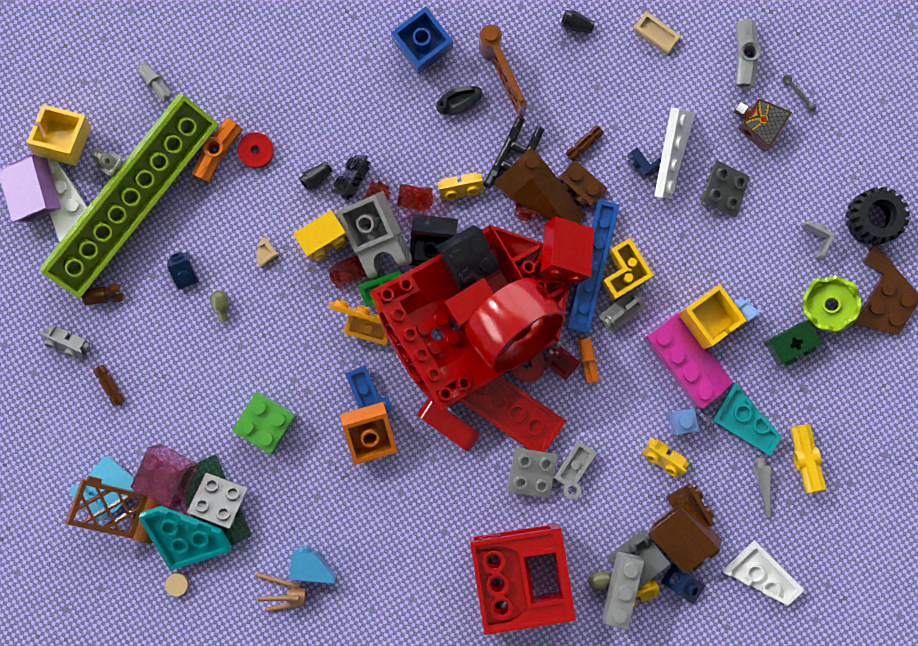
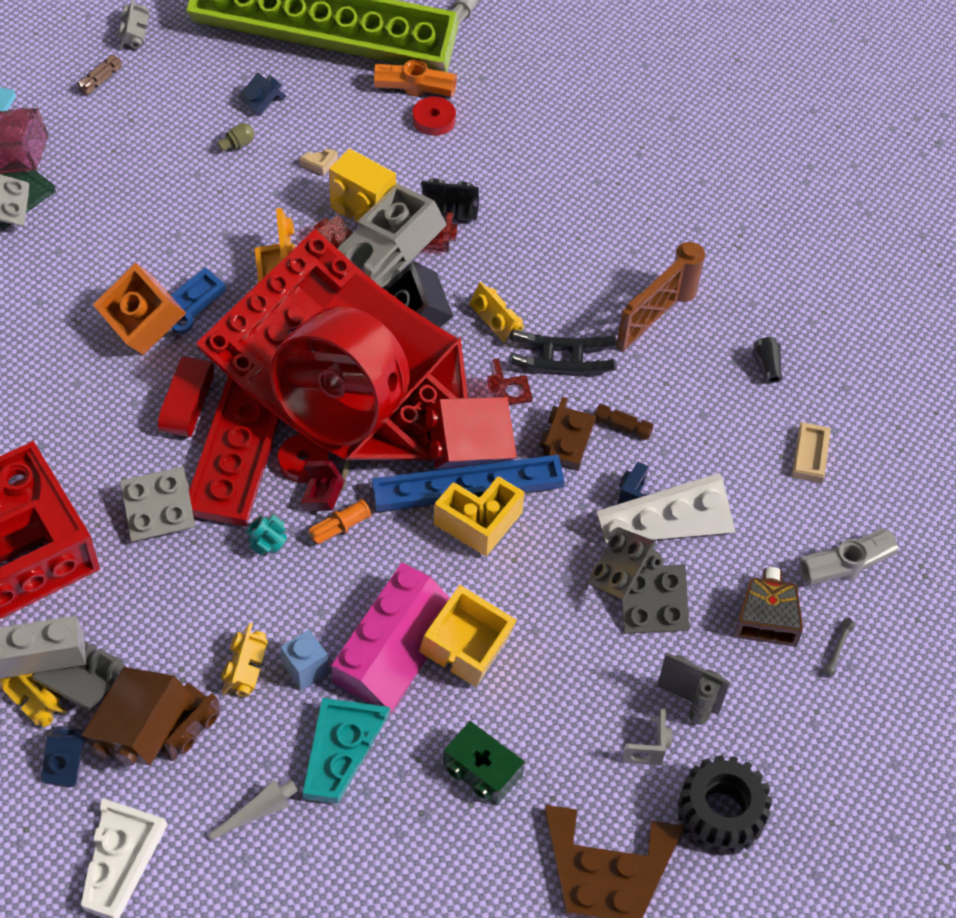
camera: 65 degrees right, 30 degrees down
(102, 295) = (200, 37): reddish brown bar -> none
(264, 422) = (111, 215): bright green brick -> none
(315, 176) = (429, 168): black cone -> none
(415, 197) = (457, 269): clear red bracket -> none
(422, 40) = (648, 211): blue brick -> none
(459, 100) = (601, 276): black arm -> none
(467, 257) = (408, 315): black piece -> none
(537, 187) = (533, 380): reddish brown wedge -> none
(574, 467) = (184, 555): light grey hinge -> none
(583, 411) = (266, 534): none -> teal gear
(622, 310) = (425, 539): light grey hinge -> none
(702, 198) = (623, 561): none -> dark grey hinge
(747, 309) = (498, 684): light blue brick -> none
(807, 458) = (319, 849): yellow piece -> none
(809, 194) = (700, 686): none -> dark grey hinge
(836, 289) = (567, 771): lime plate -> none

